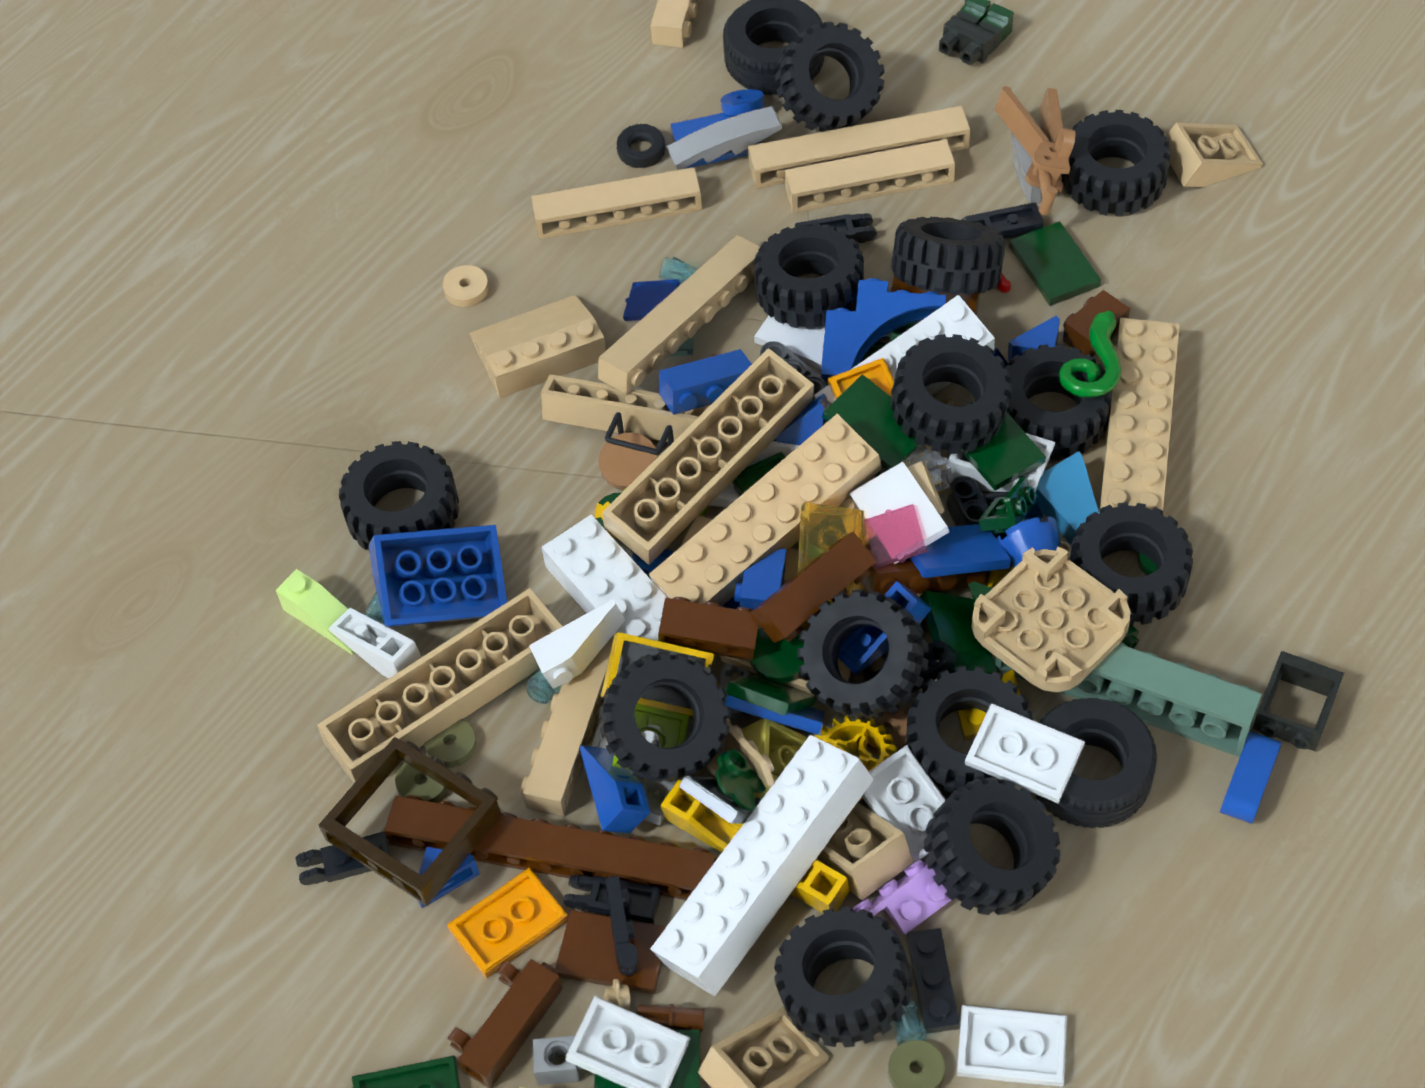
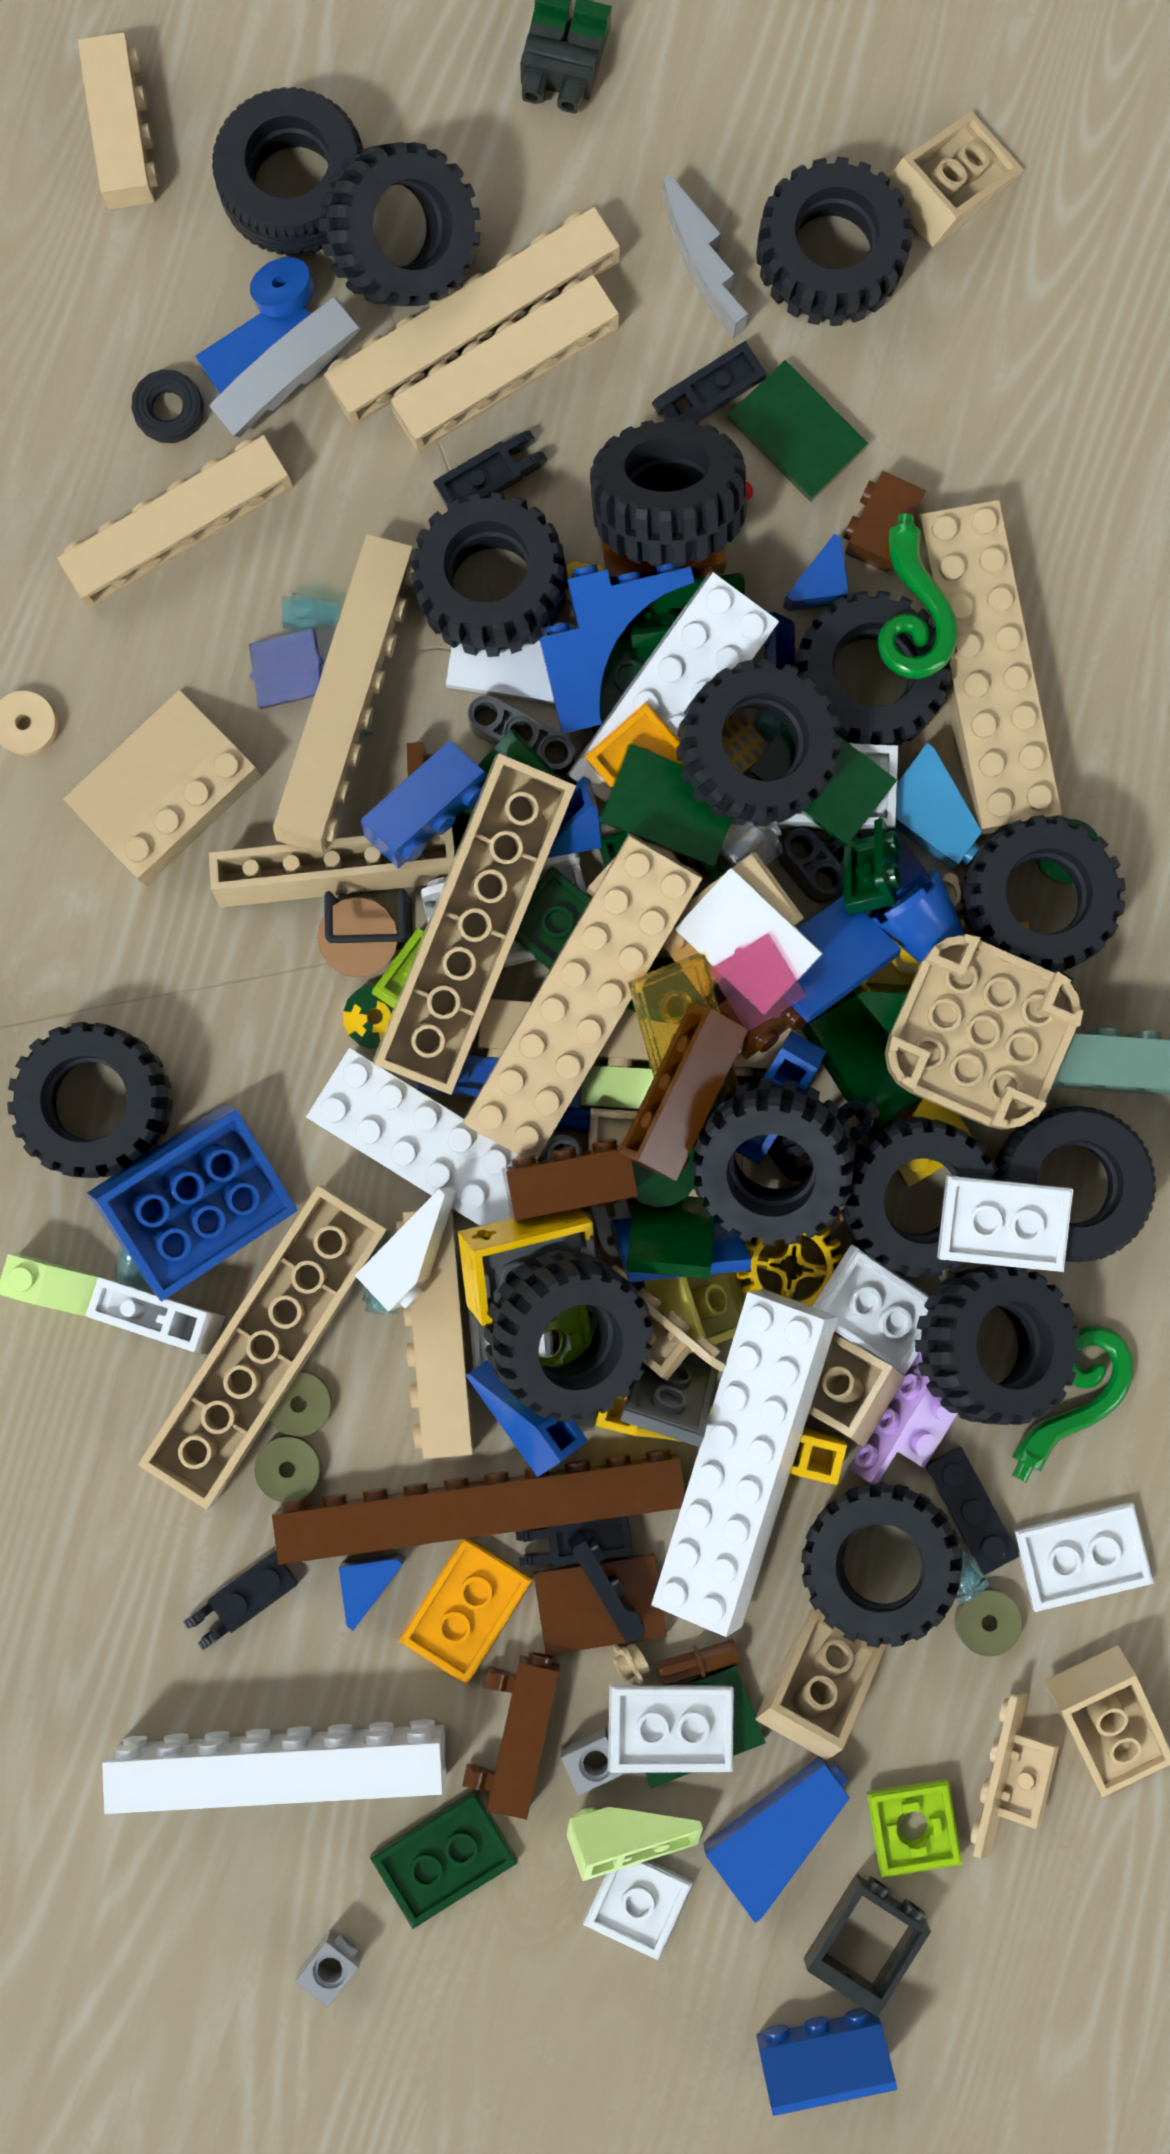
camera: 25 degrees left, 30 degrees up
(315, 971) = (275, 1767): none -> white brick
(420, 887) = (287, 1613): dark brown window -> none
(738, 779) = (682, 1379): dark green plate -> none
(761, 580) = (609, 1088): blue slope -> none
(1006, 943) = (1042, 1438): none -> green plant
(1046, 146) = (736, 251): medium nougat piece -> none

